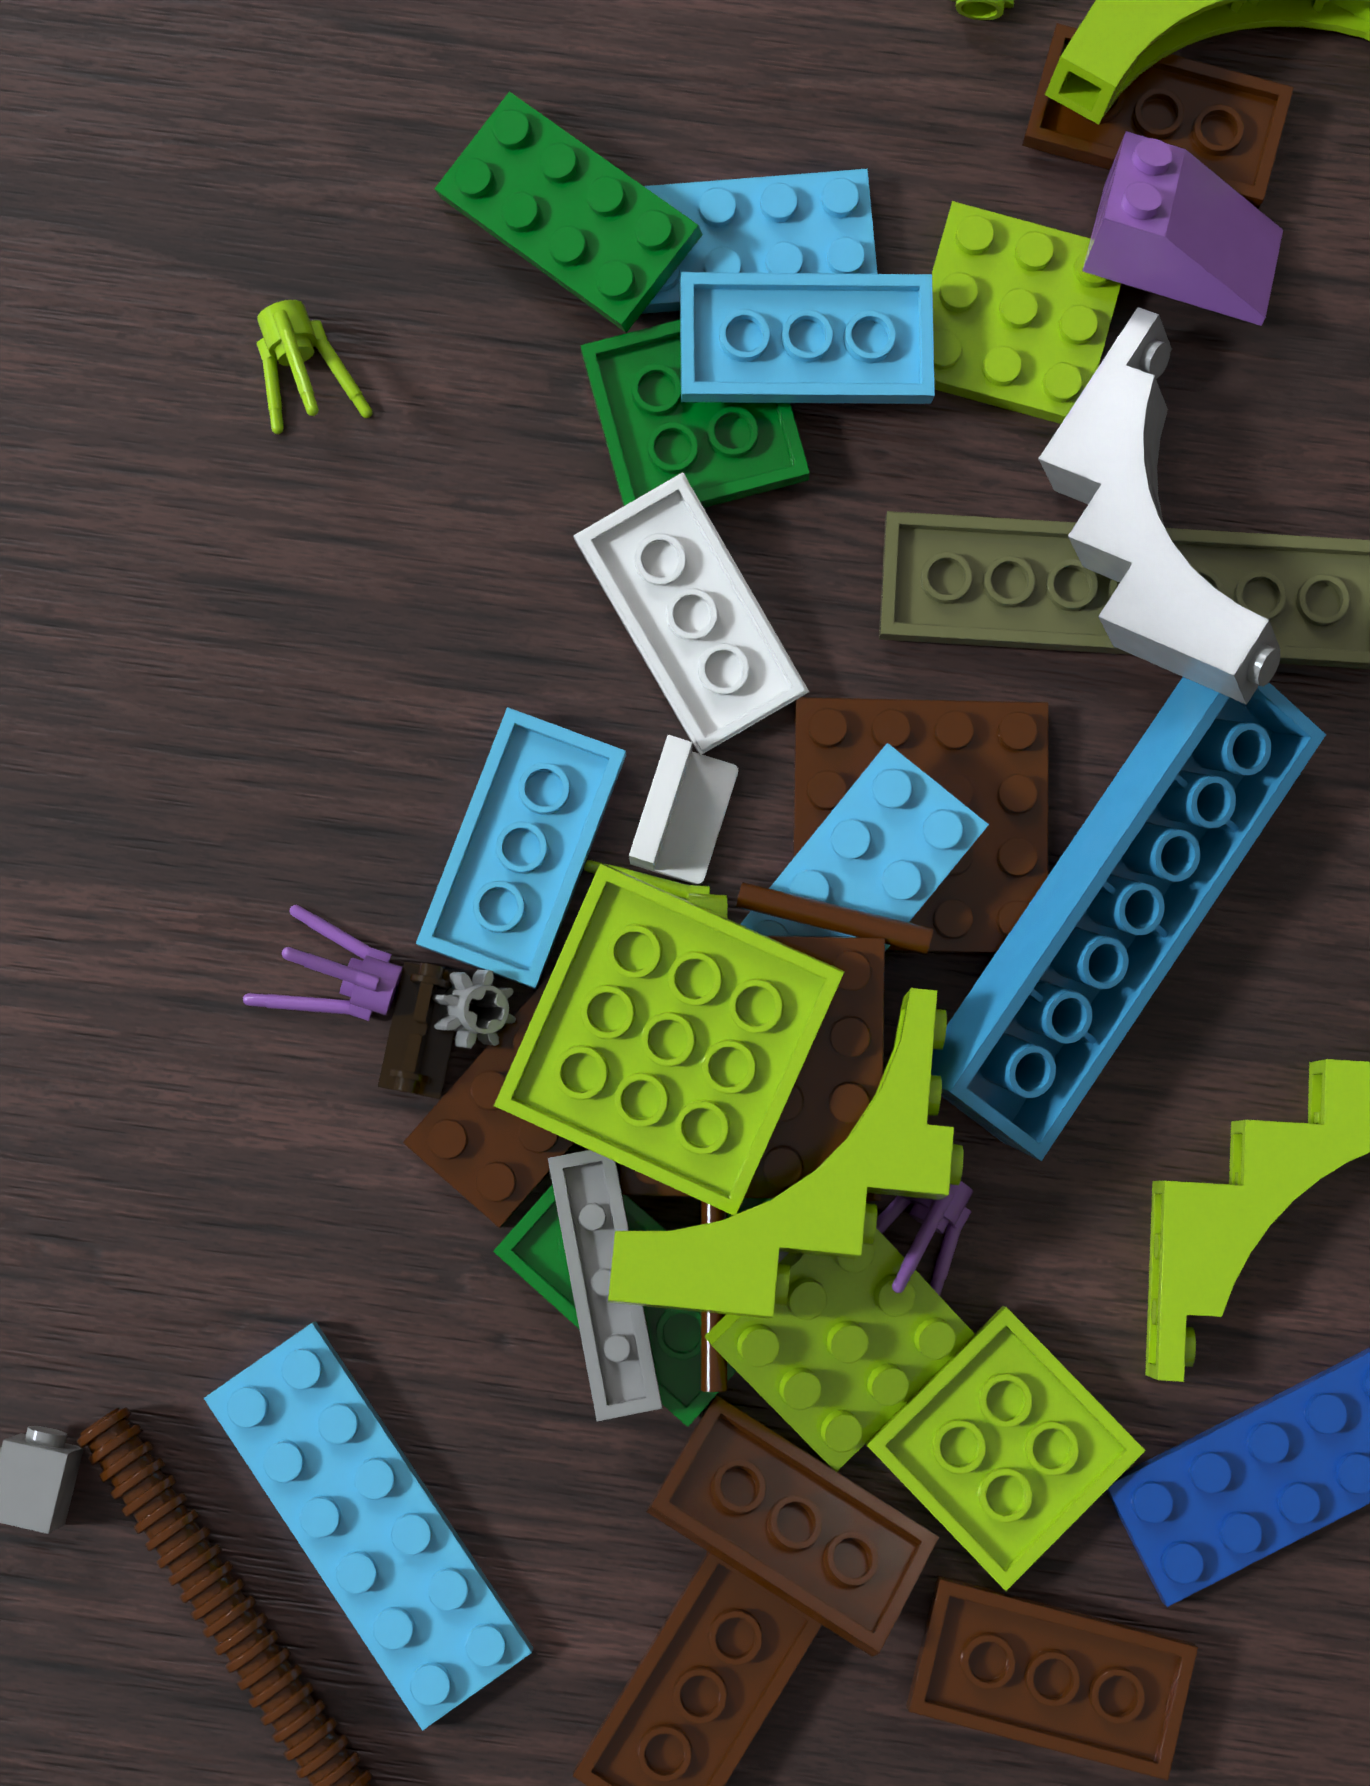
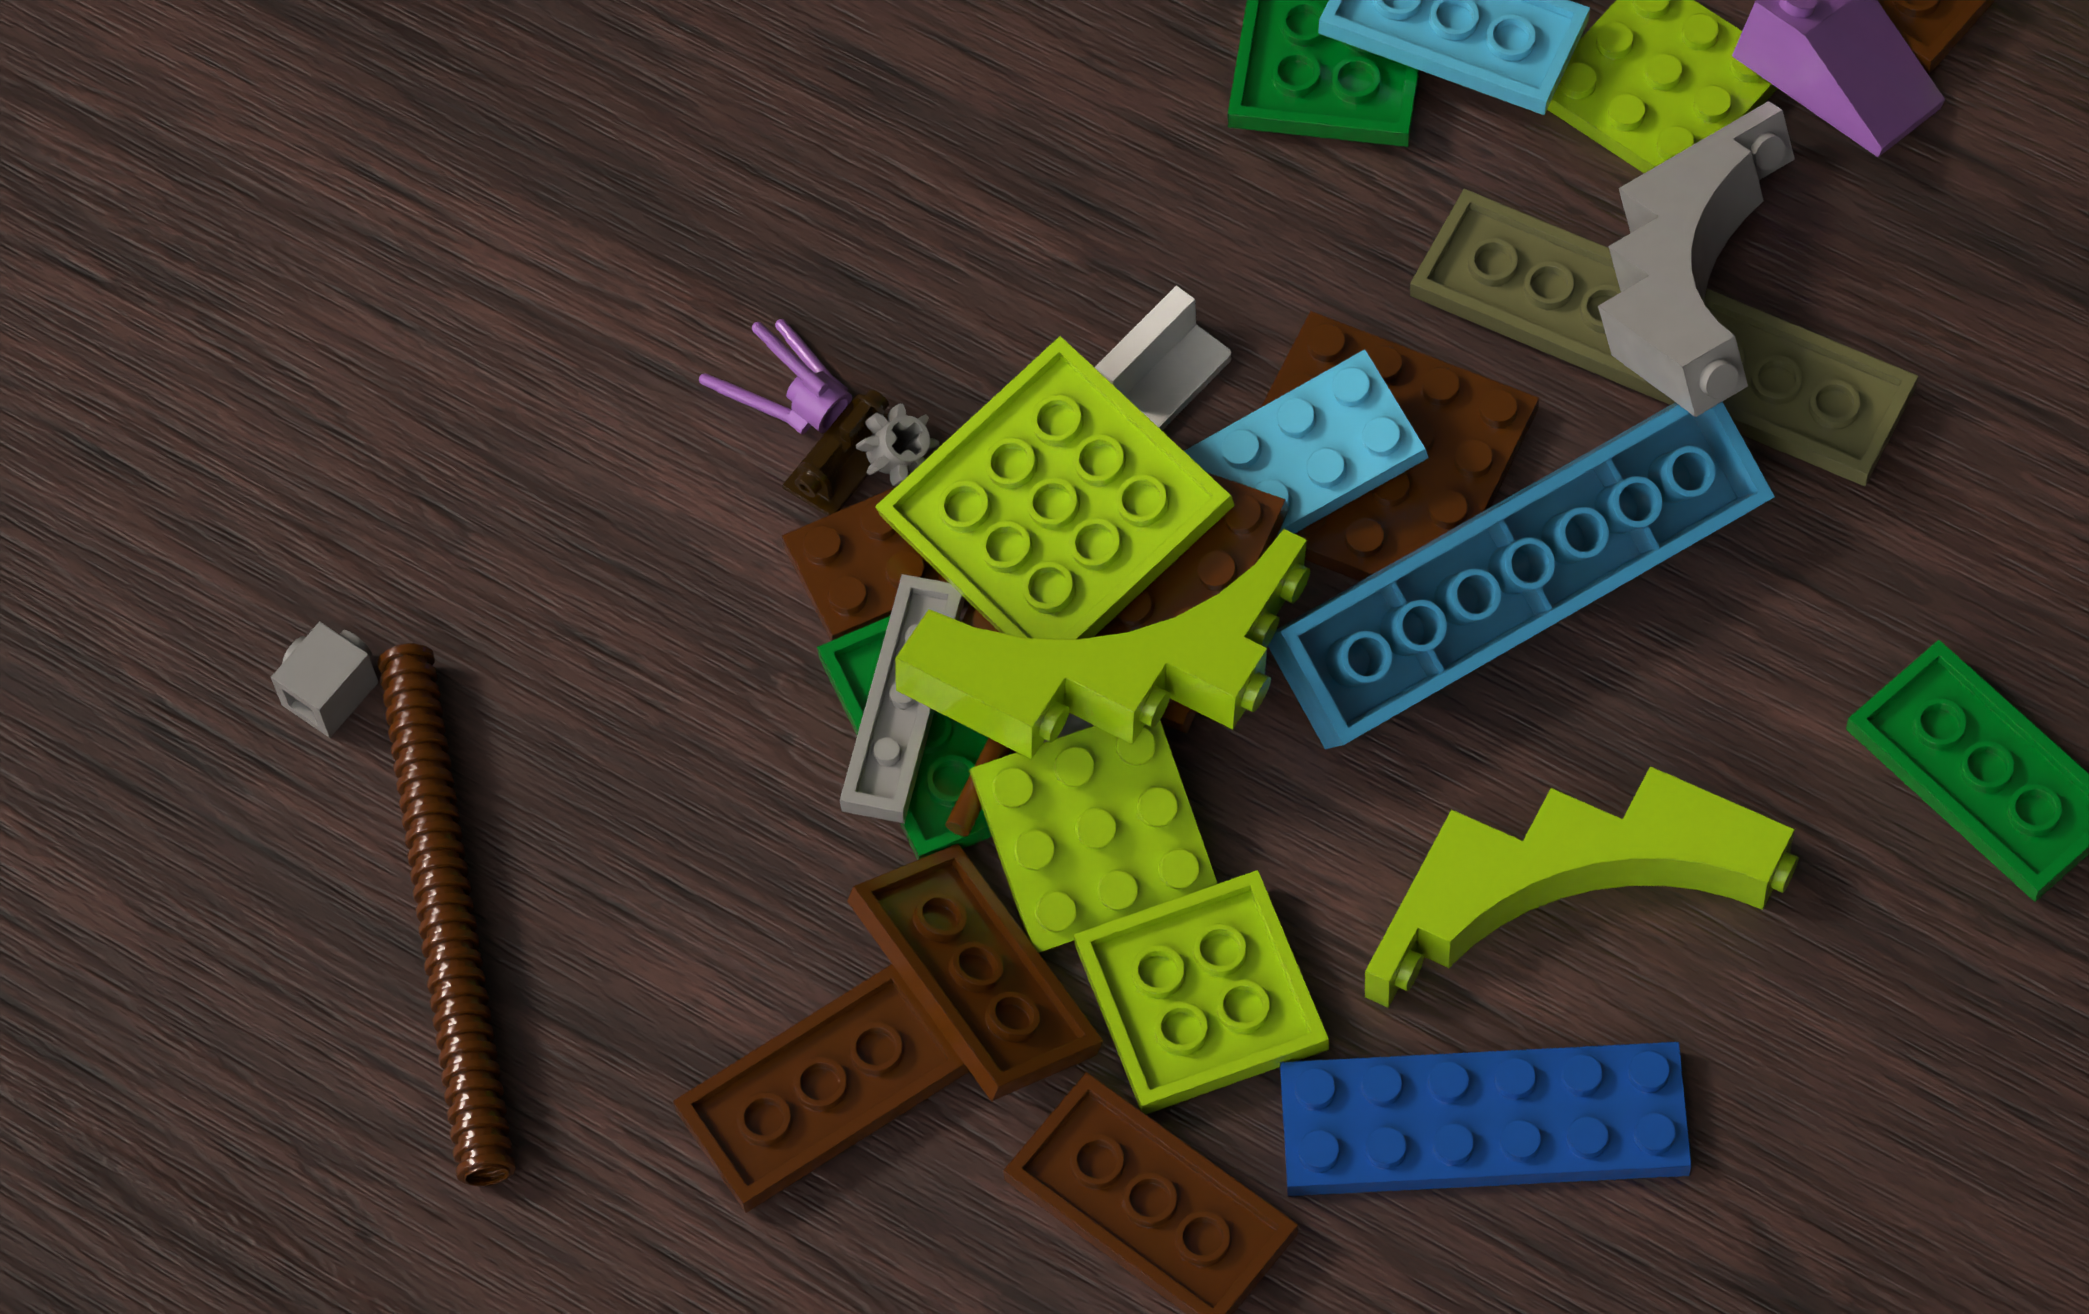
camera: 30 degrees right, 20 degrees down
(369, 1525) = (596, 838): medium azure plate -> none
(521, 848) = (1001, 327): medium azure plate -> none
(691, 613) = (1247, 209): white tile -> none
(834, 917) = (1249, 471): reddish brown bar -> none
(934, 1216) = (1233, 766): medium lavender plant -> none

